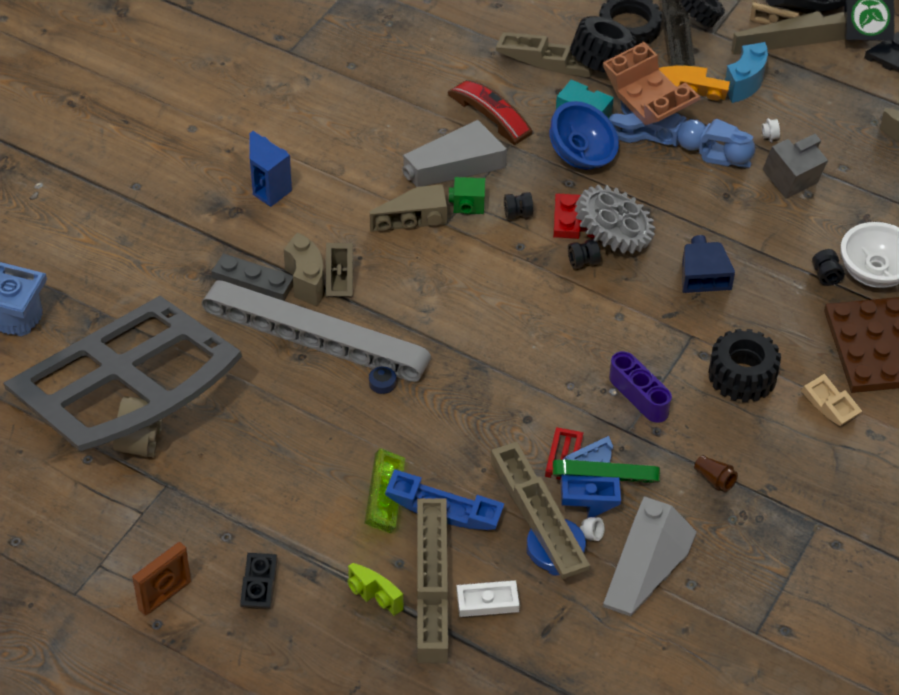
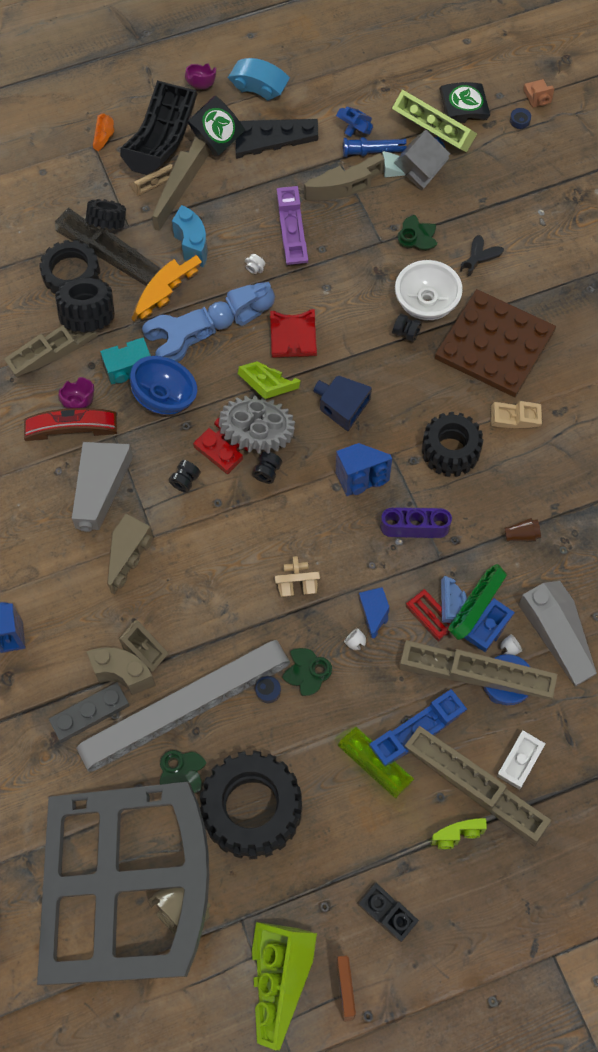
camera: 50 degrees left, 15 degrees up
(156, 528) = (283, 966): none -> lime wedge
(256, 368) = (185, 771): none -> dark green plate
(266, 449) = (244, 770): none -> black tyre
(422, 398) = (304, 673): none -> dark green plate
(468, 195) = (145, 502): green brick -> none
(485, 411) = (354, 639): none -> white hinge
(507, 342) = (285, 582): none -> tan hips
(519, 94) = (77, 394): none -> magenta hair
(526, 408) = (375, 609): none -> blue slope
(645, 87) = (165, 311): nougat slope -> none
(646, 311) = (362, 468): none -> blue slope
(666, 204) = (266, 380): none -> lime wing
(732, 195) = (293, 334): none -> red piece
(795, 166) = (308, 276): flat silver plate -> none
(846, 125) = (291, 225): none -> medium lavender slope

